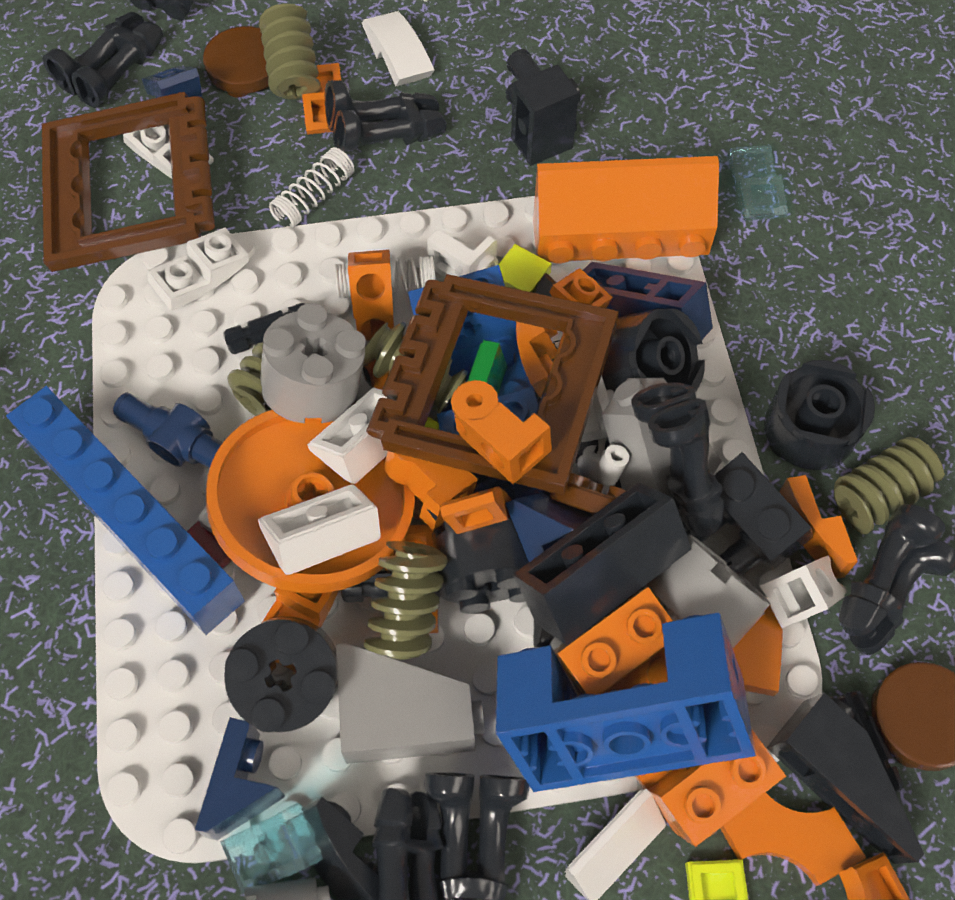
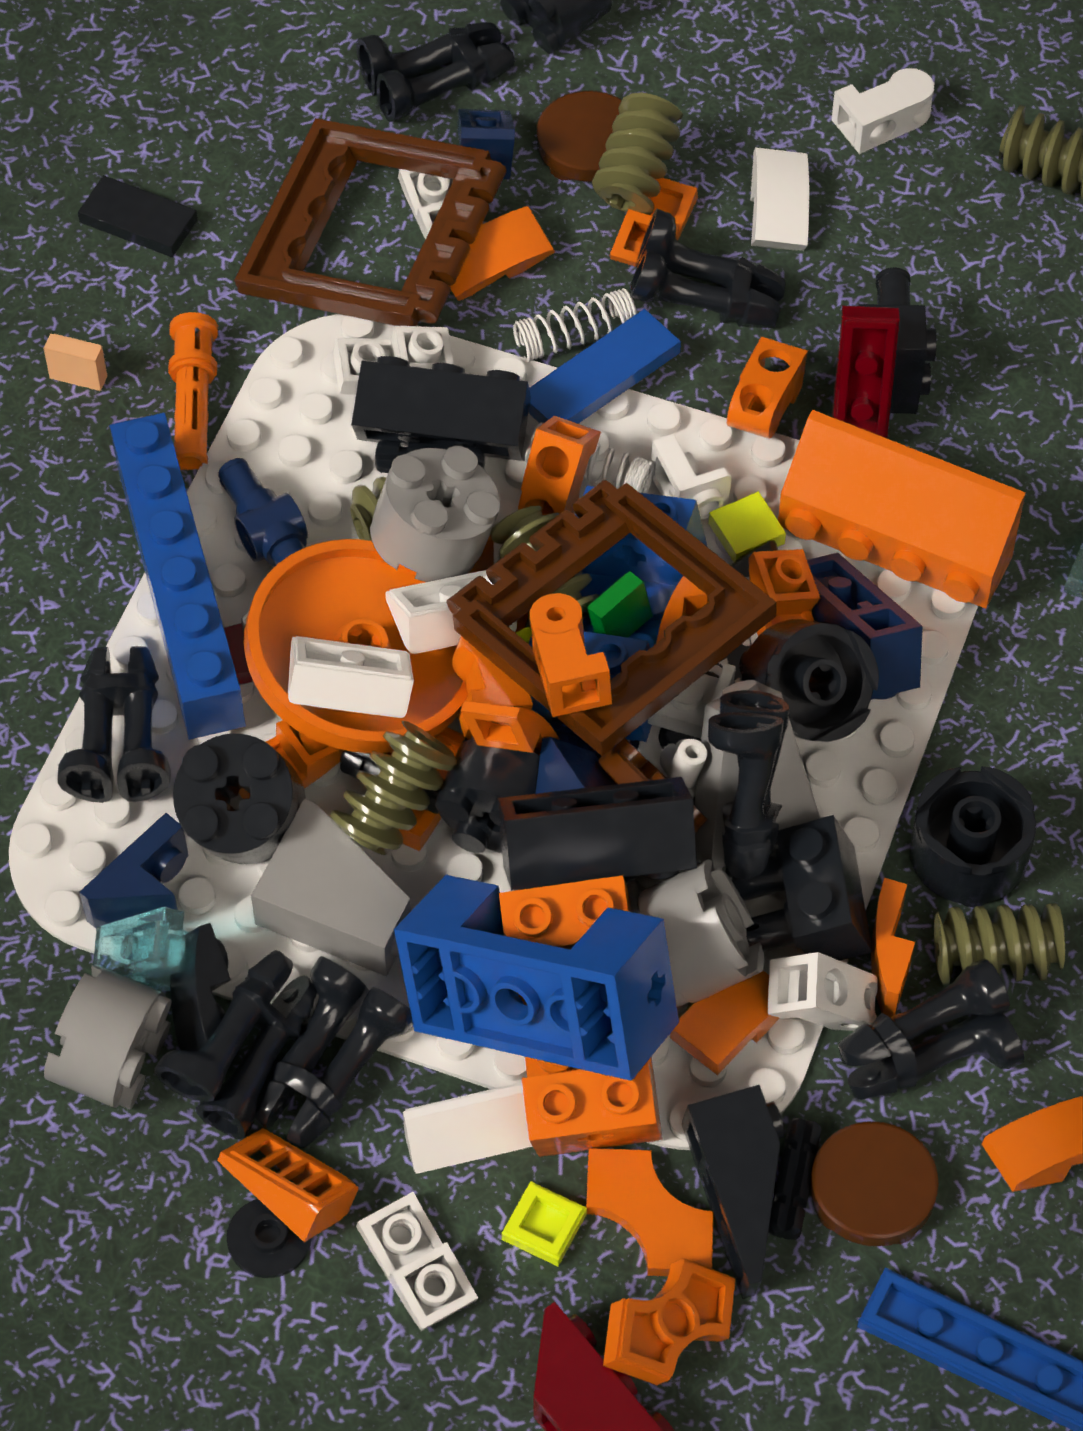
camera: 30 degrees right, 5 degrees down
(49, 344) = (192, 371): none -> orange pin
(183, 685) = (142, 770): none -> black piece
(230, 157) = (502, 248): none -> orange slope
(257, 284) = (441, 407): none -> black brick
(351, 211) = (604, 370): none -> blue tile
(473, 174) = (765, 394): none -> orange leg
(542, 121) = (866, 367): none -> dark red tile

